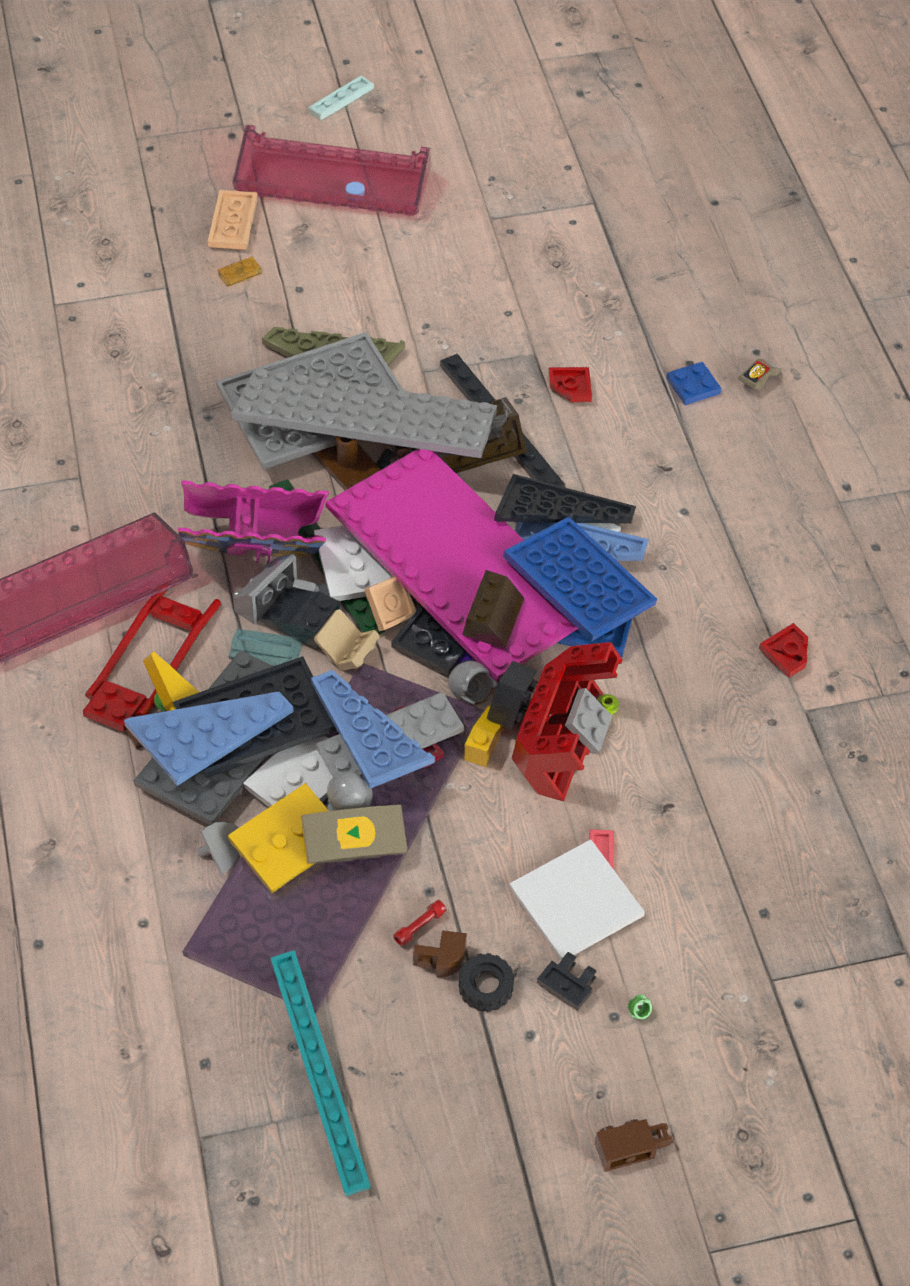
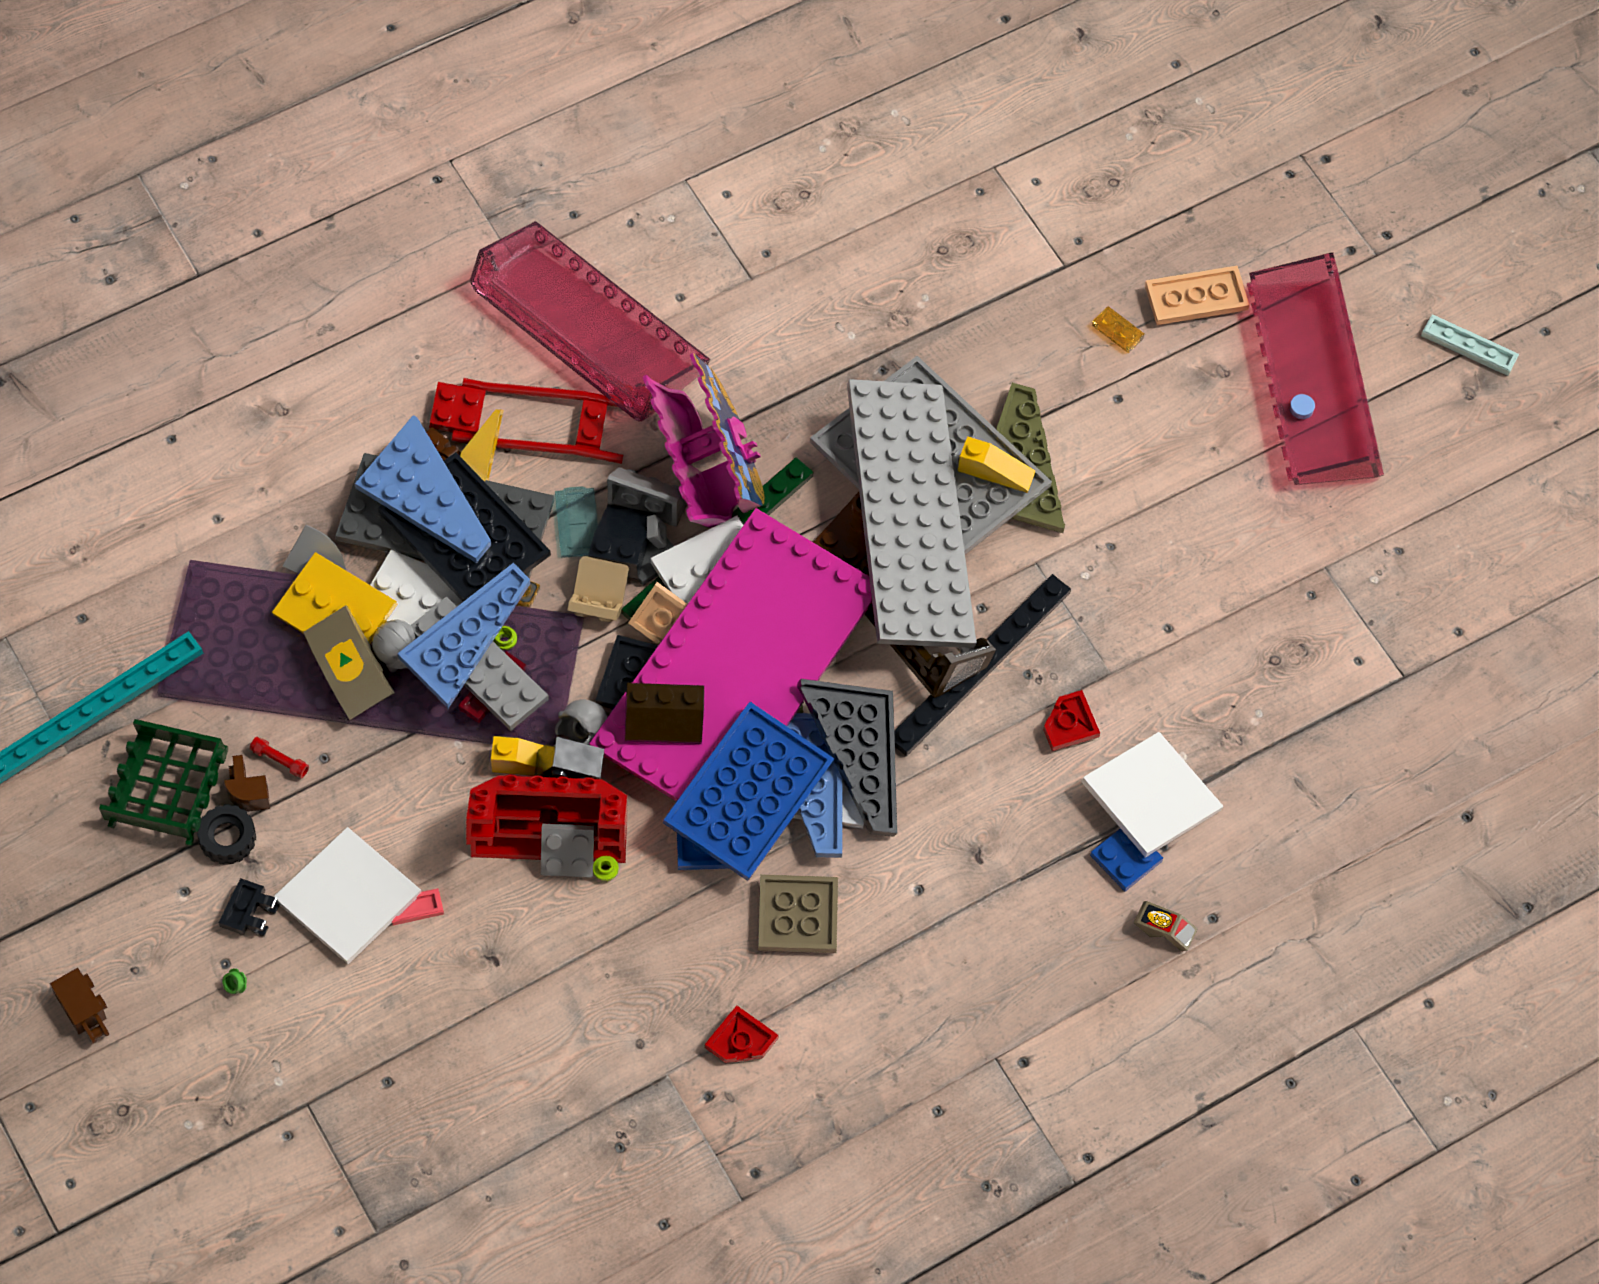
camera: 70 degrees right, 10 degrees up
(340, 357) = (994, 465): none -> yellow slope
(398, 1051) = (130, 775): none -> dark green window
(649, 352) = (1152, 794): none -> white tile
(688, 586) = (798, 913): none -> dark tan plate

